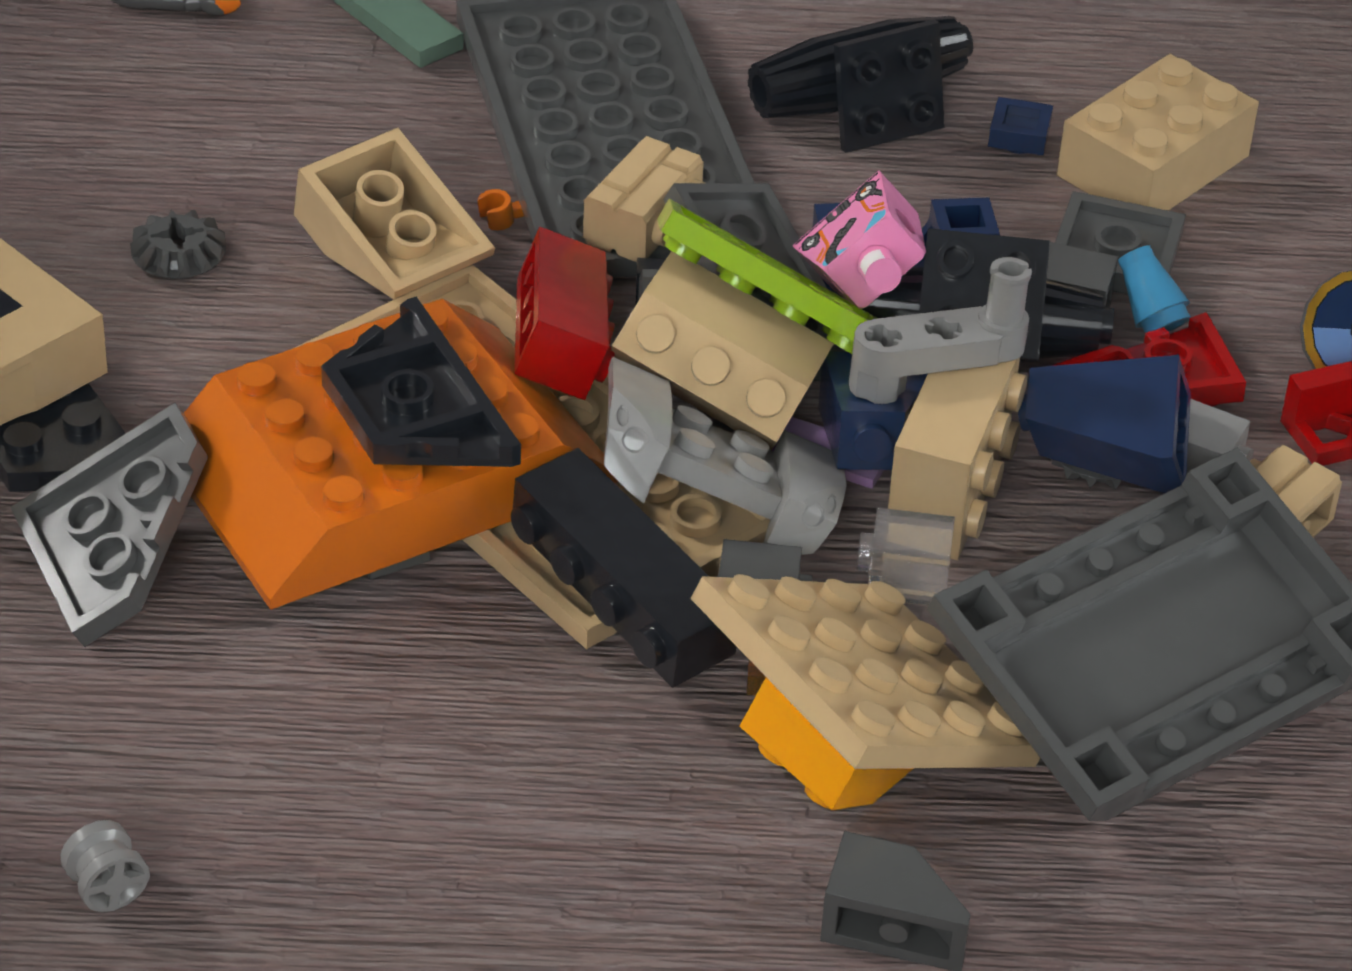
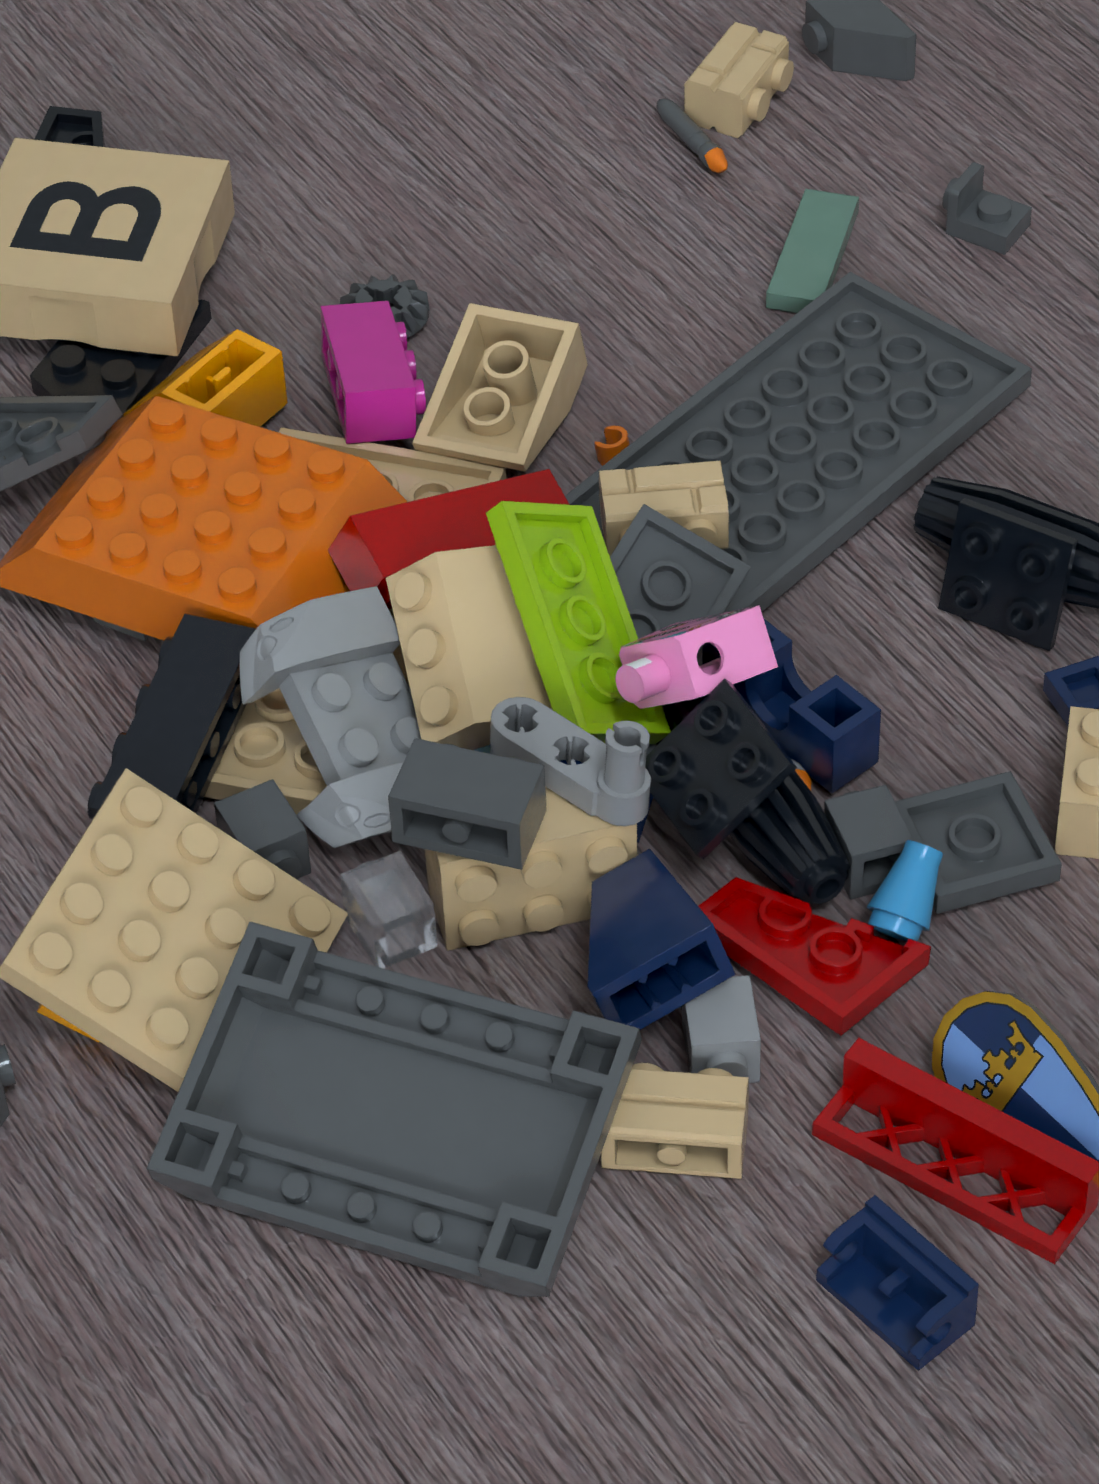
camera: 60 degrees right, 5 degrees up
(174, 357) = (229, 378): none -> light orange slope
(276, 274) = (371, 372): none -> dark pink brick
(416, 398) = (198, 501): black wing -> none
(958, 400) = (467, 803): none -> dark grey brick

